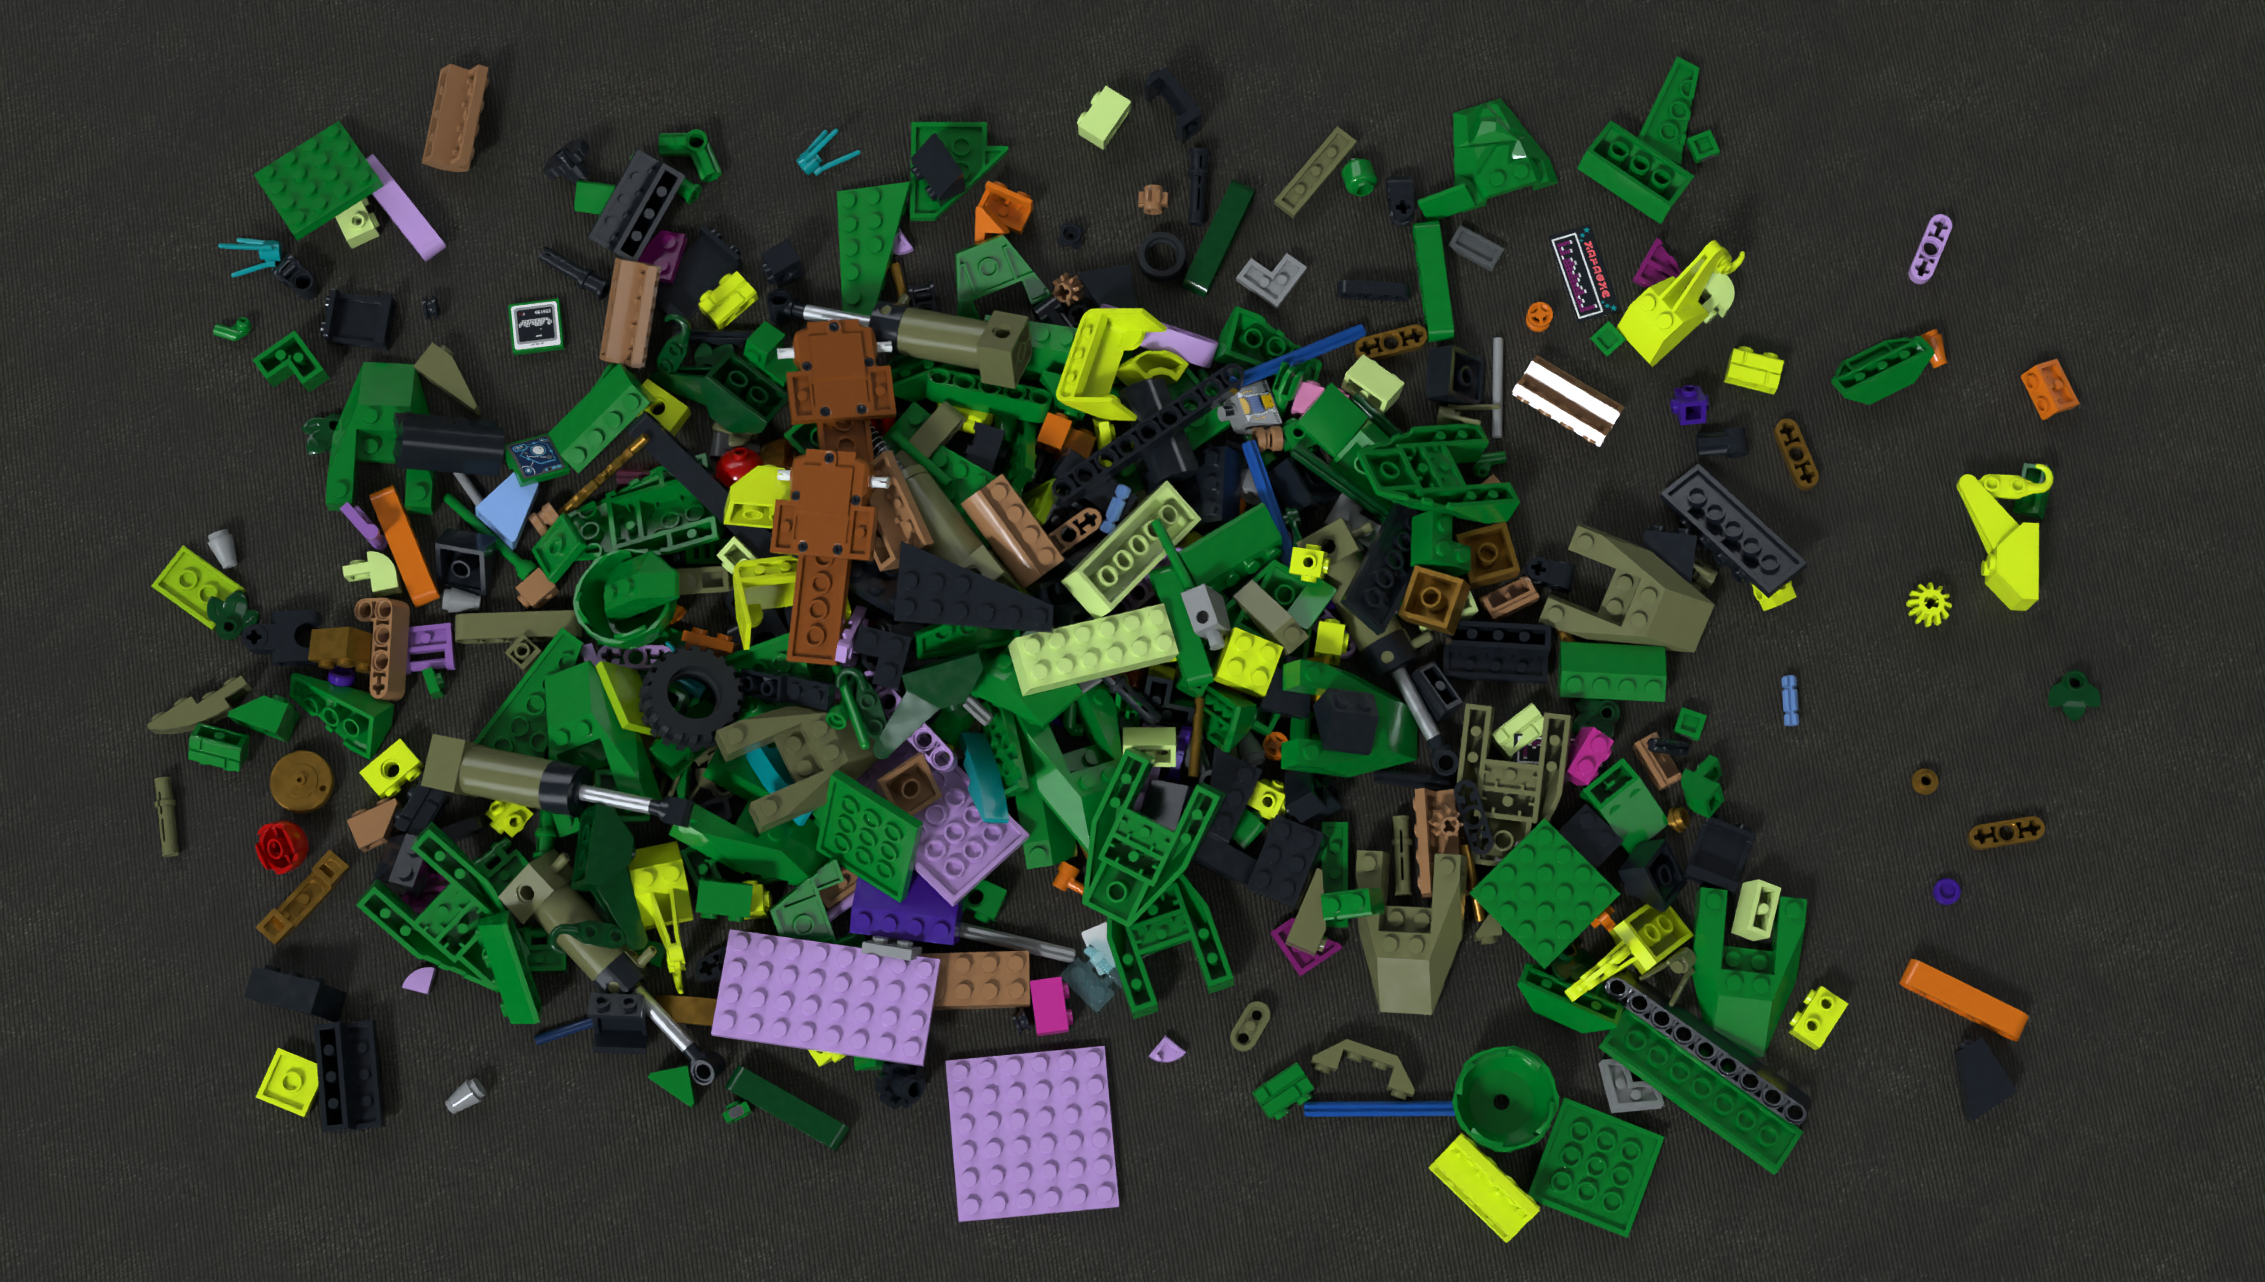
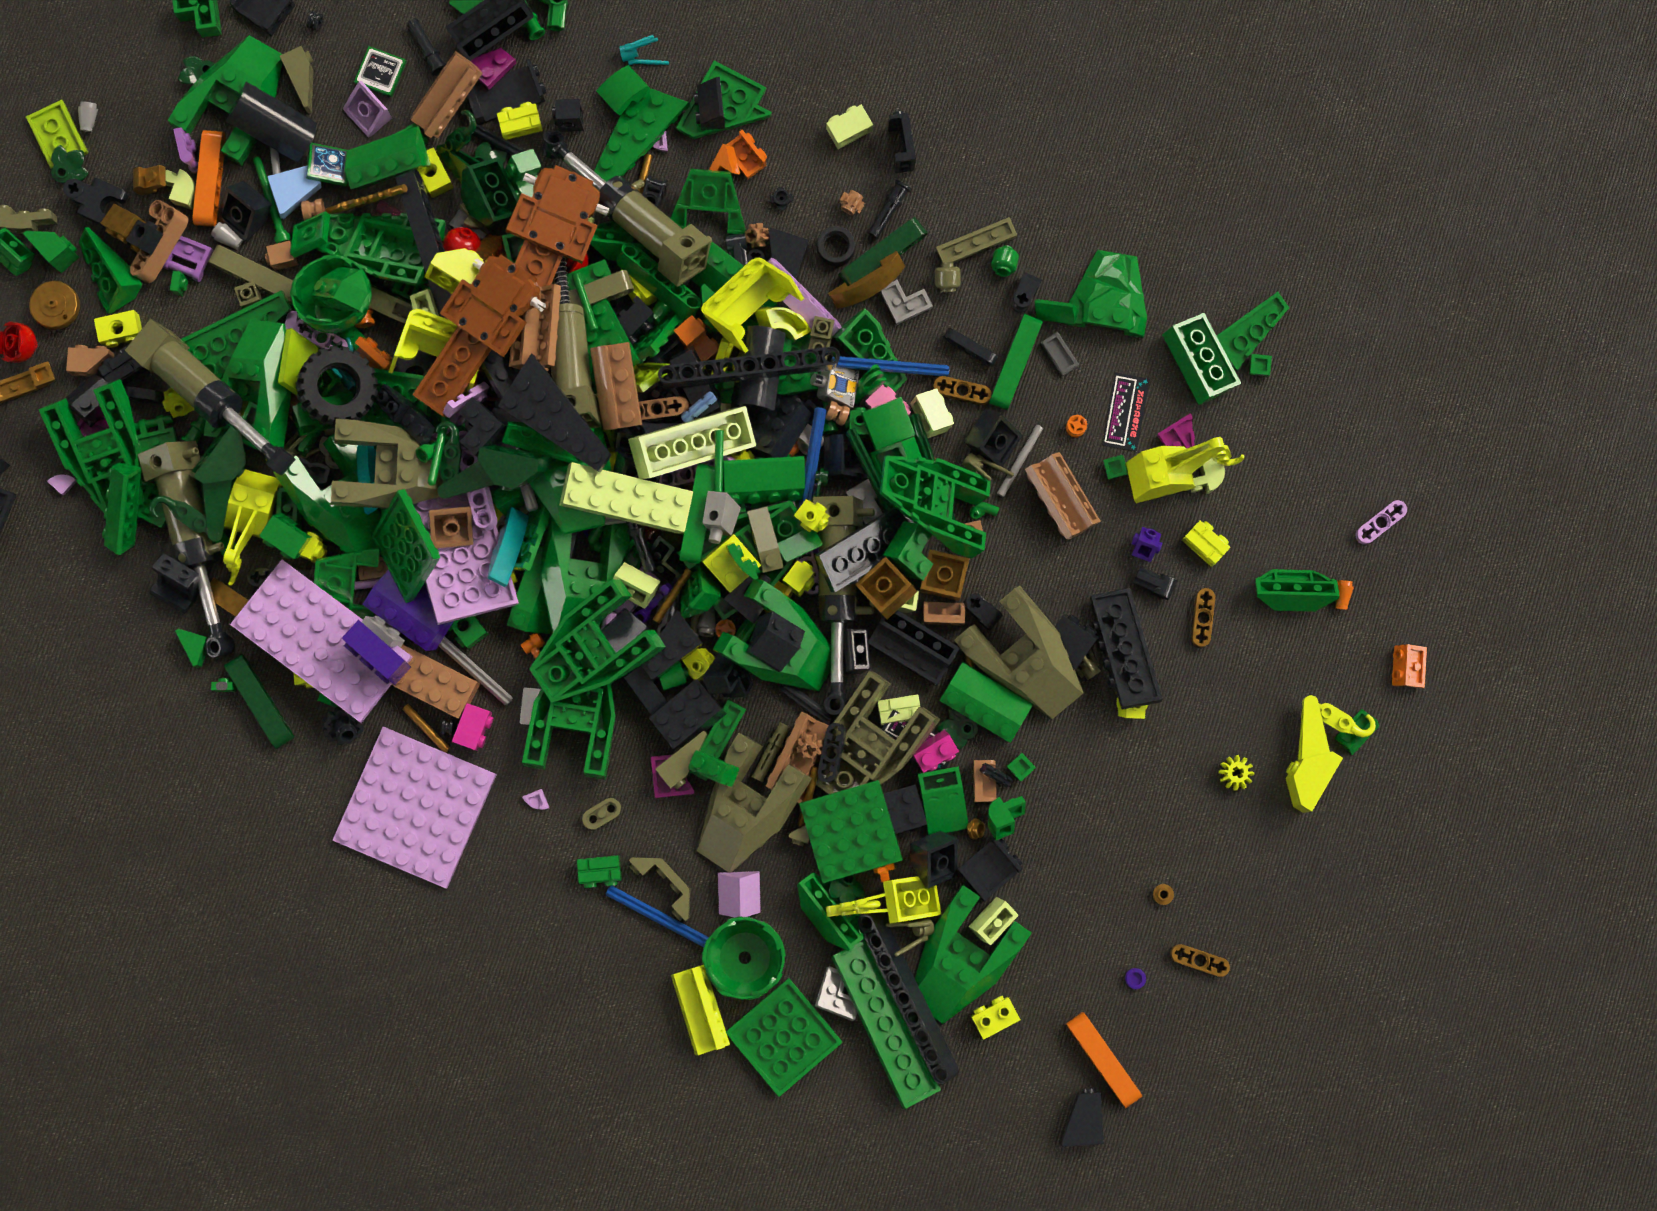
camera: 25 degrees right, 5 degrees up
(337, 581) = (148, 179): none -> pearl gold brick
(341, 676) = (118, 247): dark purple tile -> none
(372, 646) = (145, 236): none -> black brick
(466, 1095) = (52, 578): light grey cone -> none
(545, 376) = (366, 110): none -> lavender slope
(563, 1031) = (135, 568): dark blue bar -> none
(826, 205) = (622, 89): none -> green slope
(902, 974) = (375, 653): none -> dark purple brick
(995, 1037) = (426, 728): none -> pearl gold bar
(1087, 984) = (507, 723): clear light blue plate -> none
(1201, 360) = (821, 333): none -> olive slope
(1225, 279) = (870, 284): none -> pearl gold slope
(1270, 654) = (747, 566): none -> green slope
(1306, 226) = (947, 277): none -> olive head
(1454, 1033) = (739, 893): none -> lavender slope
(1790, 700) = (1101, 788): medium blue axle -> none
(2073, 699) = (1301, 893): dark green plate -> none

